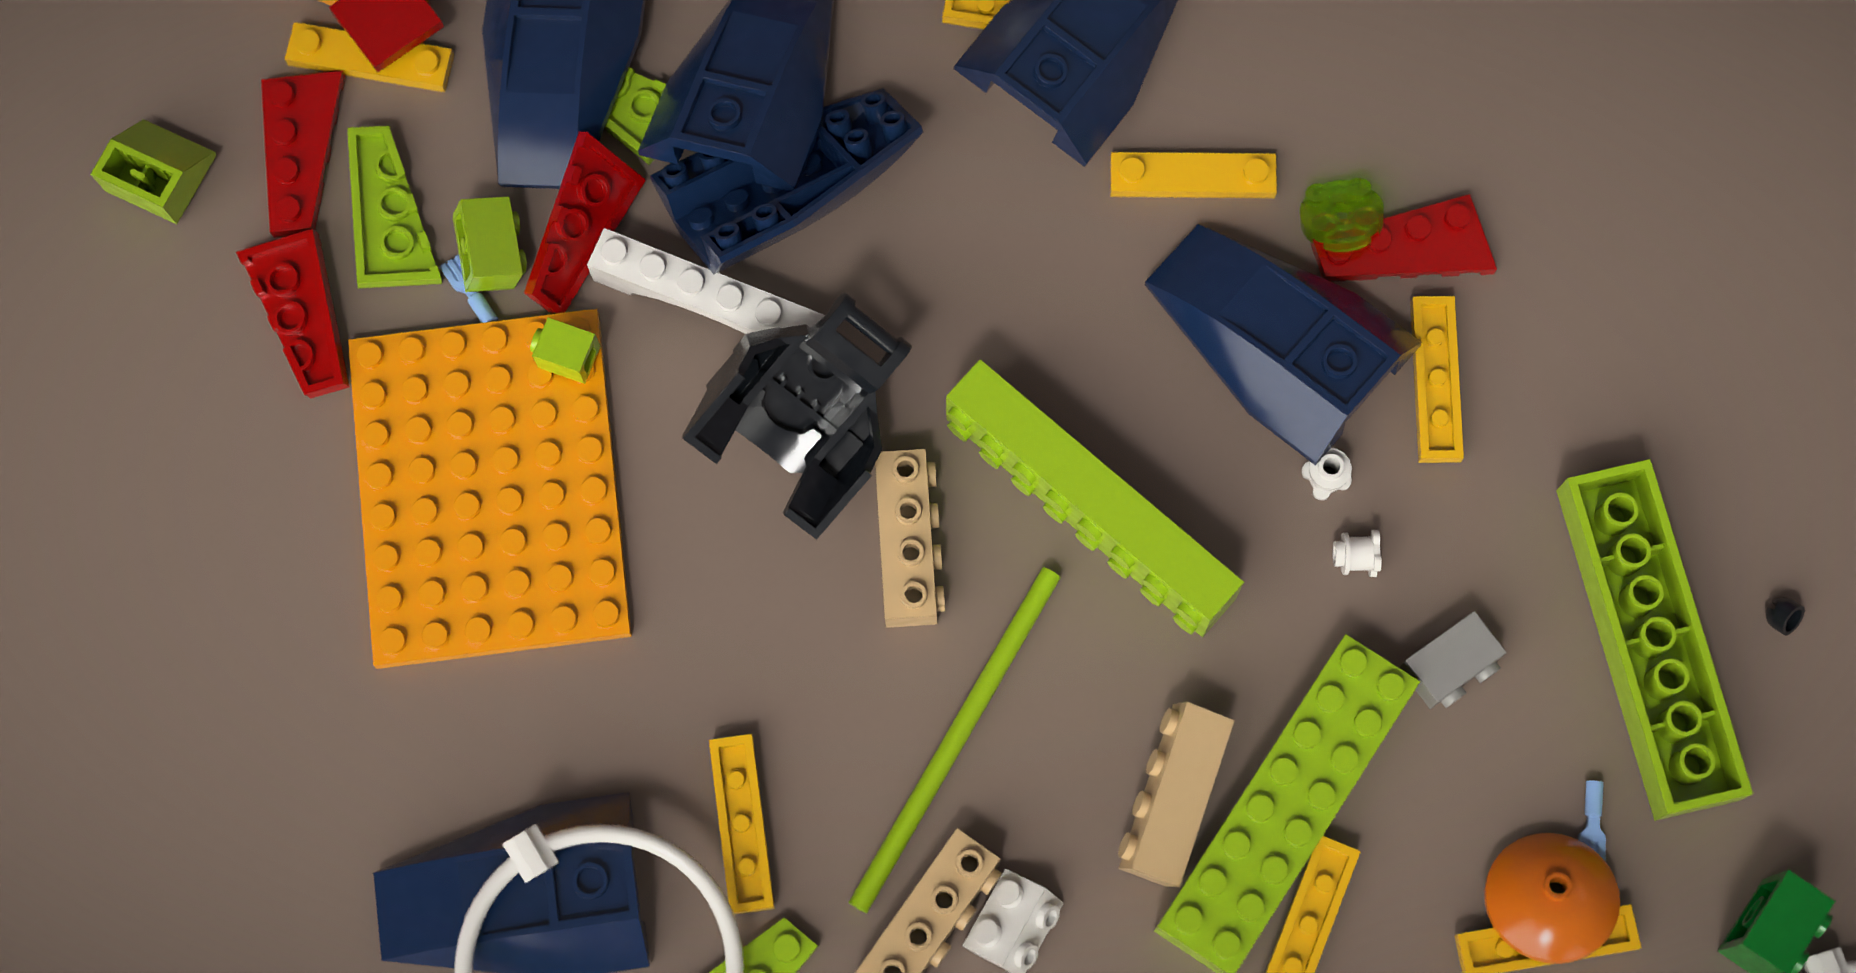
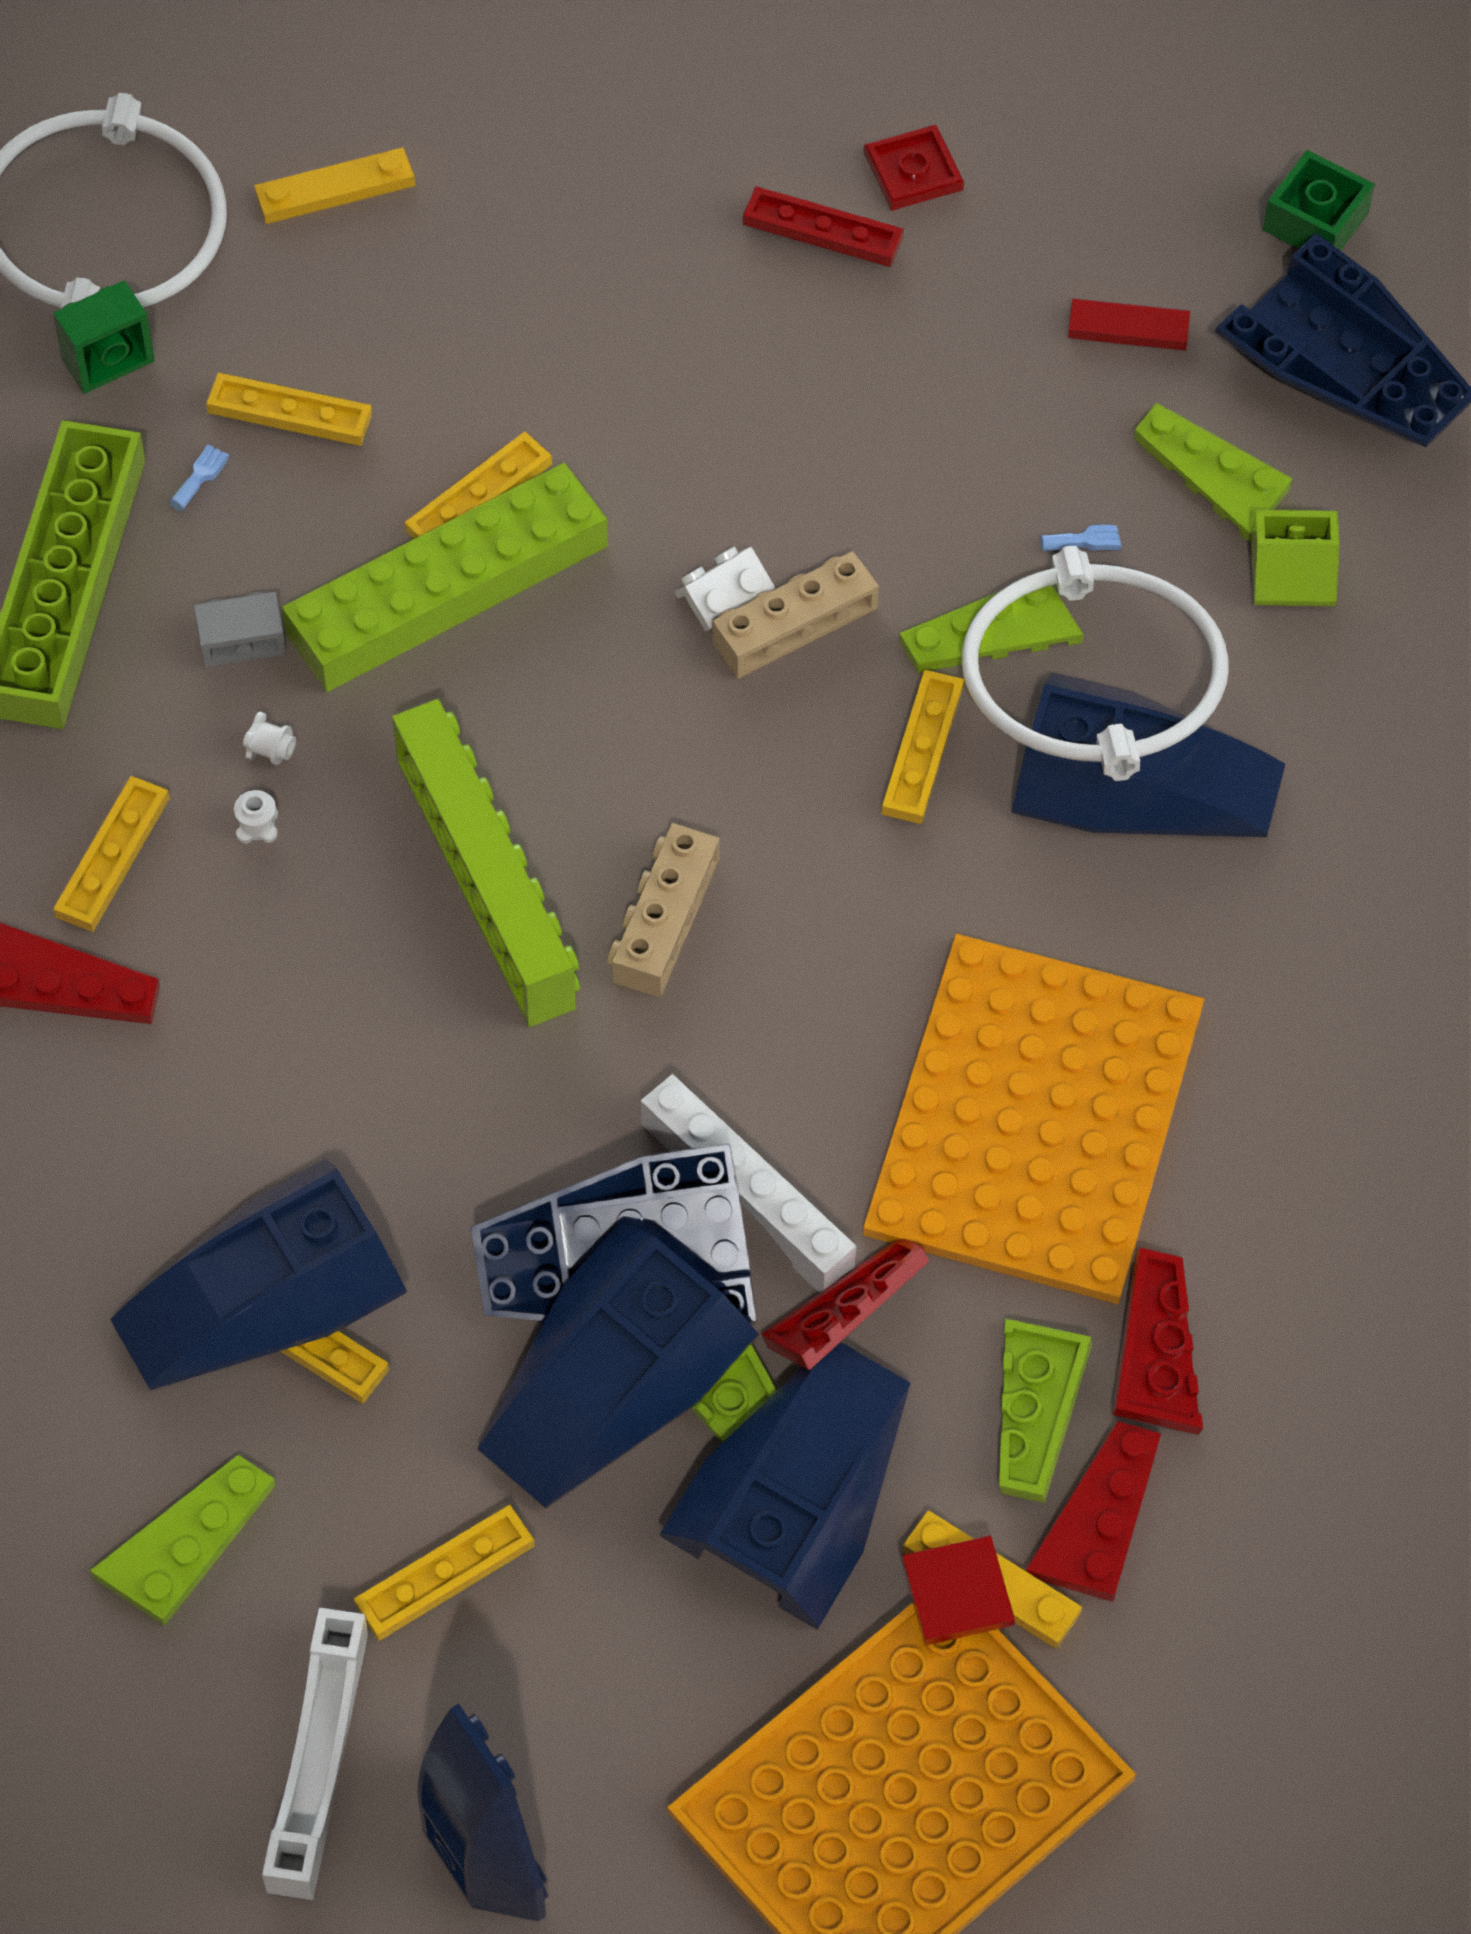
camera: 160 degrees left, 15 degrees down
(153, 169) = (1257, 1537): lime slope -> none
(476, 300) = (984, 1315): light blue piece -> none
(488, 244) = (945, 1322): lime brick -> none
(565, 350) = (911, 1178): lime brick -> none
(805, 404) = (686, 1019): black piece -> none
(954, 740) = (699, 744): lime piece -> none
(1175, 794) = (535, 618): tan brick -> none
(1193, 175) = (226, 1124): yellow plate -> none
(1279, 337) = (229, 932): dark blue wedge -> none
(1351, 196) = (89, 1030): clear neon green plate -> none
(1546, 923) = (271, 452): orange dish -> none

